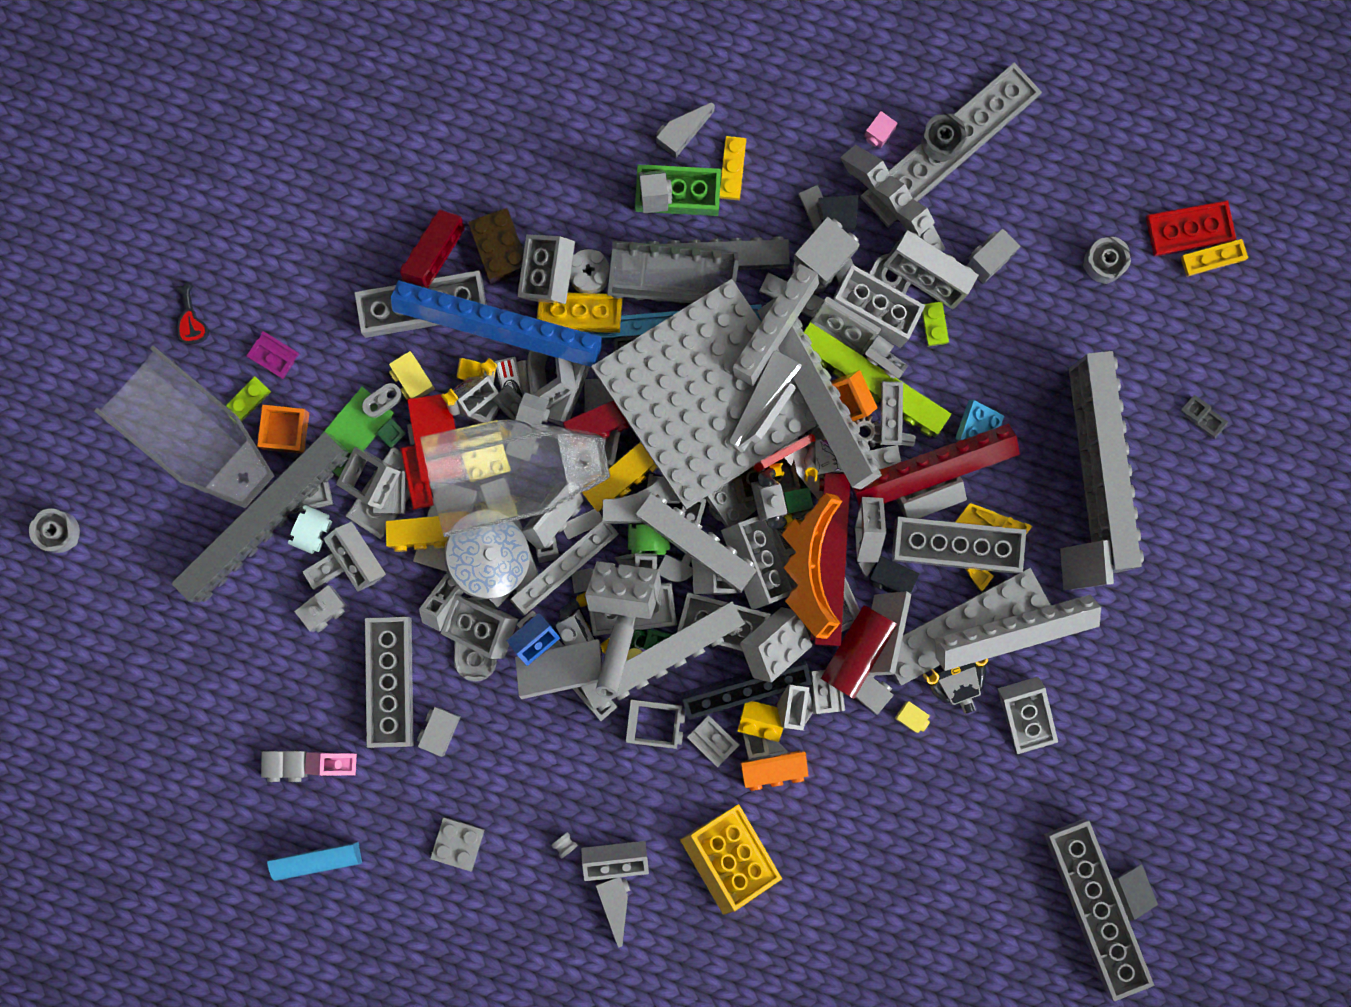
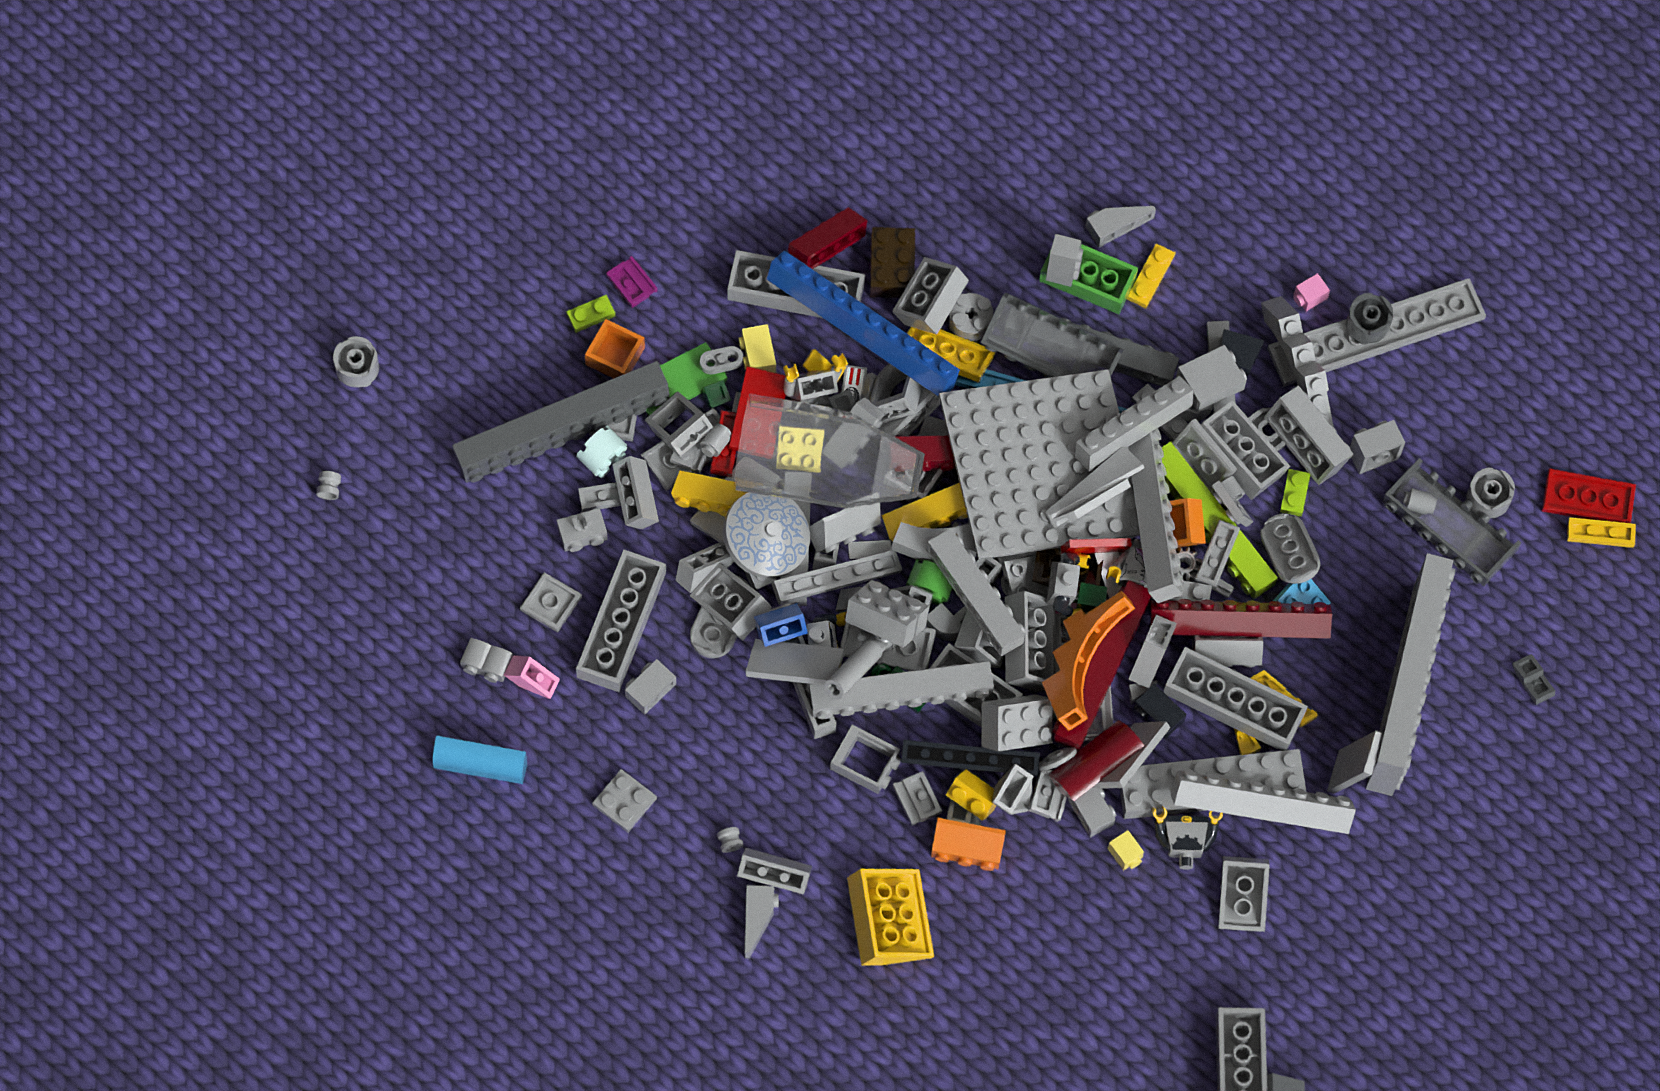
camera: 20 degrees right, 15 degrees down
(77, 655) = (328, 485): none -> light grey wheel
(188, 431) = (528, 311): clear windscreen -> none
(190, 328) = (562, 229): black piece -> none
(320, 685) = (550, 602): none -> light grey tile
(407, 481) = (715, 440): none -> light grey brick
(823, 662) = (1056, 758): none -> light grey wheel
(952, 382) = (1290, 548): none -> light grey tile
(1048, 292) = (1420, 501): none -> light grey brick
(1081, 301) = (1452, 526): none -> window

